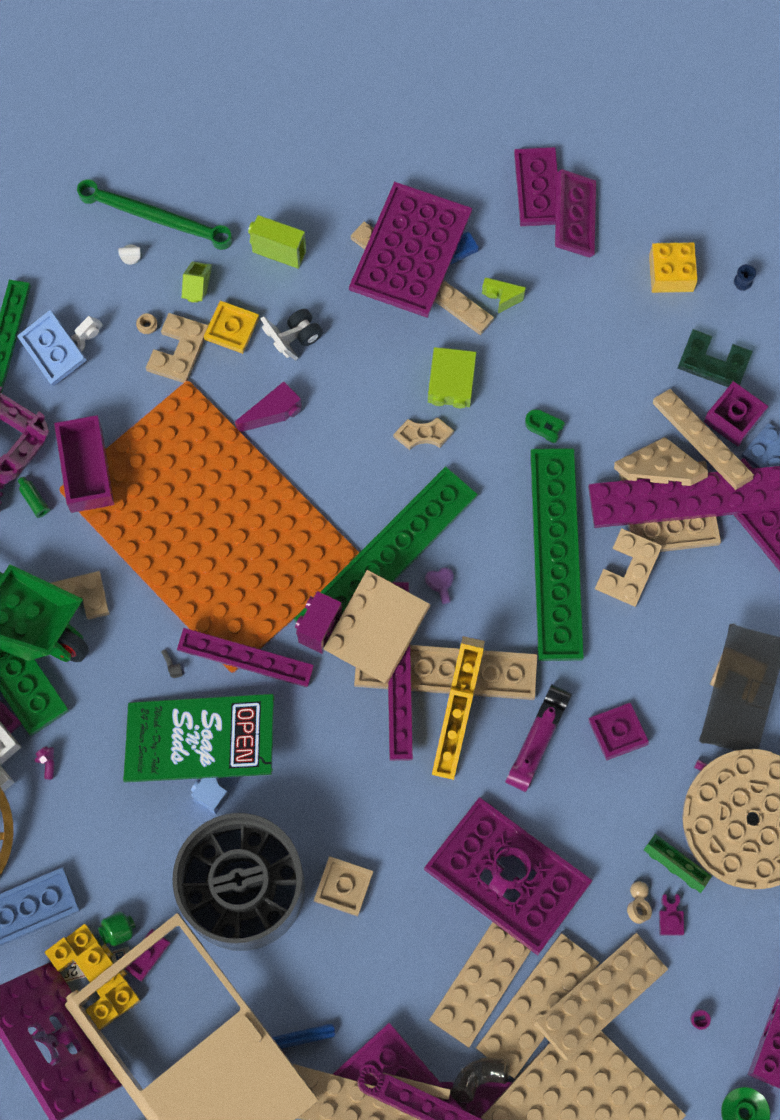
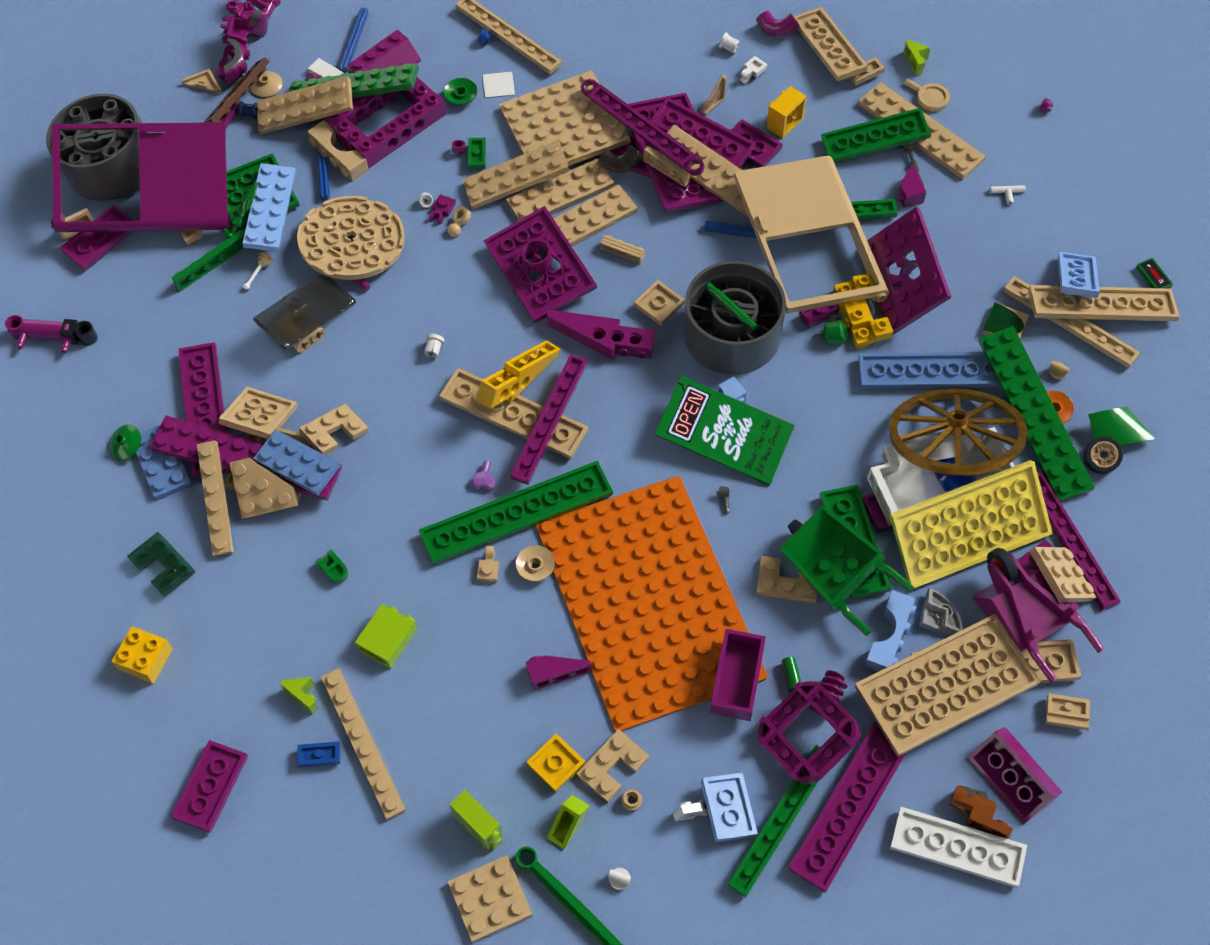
camera: 155 degrees left, 10 degrees down
(46, 757) = (850, 464): magenta plate -> none
(239, 196) = (490, 898): none -> tan plate
(241, 873) = (731, 306): none -> green piece
(245, 657) = (665, 474): magenta plate -> none
(299, 328) = (494, 731): plate -> none
(318, 622) = (595, 466): magenta brick -> none
(337, 498) = (531, 556): none -> tan dish
(377, 627) = (551, 447): tan slope -> none
(387, 487) = (488, 568): none -> tan plate
(410, 249) = (359, 763): magenta plate -> none
(413, 812) = (589, 328): none -> magenta brick
(424, 948) = (622, 249): none -> tan piece
(433, 433) = (427, 599): tan tile -> none
(538, 738) = (456, 350): magenta piece -> none
(556, 555) = (380, 466): green plate -> none
(575, 213) = (193, 740): magenta plate -> none
(577, 717) = (433, 342): none -> white bush
(618, 731) = (409, 326): magenta plate -> none
(640, 502) = (296, 462): none -> medium blue plate
(671, 1019) = (477, 153): none -> green plate
(677, 863) = (418, 233): green plate -> none
(697, 918) = (429, 198): none -> white hinge
(718, 549) = (258, 412): none -> tan plate
(735, 414) = (175, 508): magenta brick -> none
(744, 271) = (87, 627): dark blue bush -> none

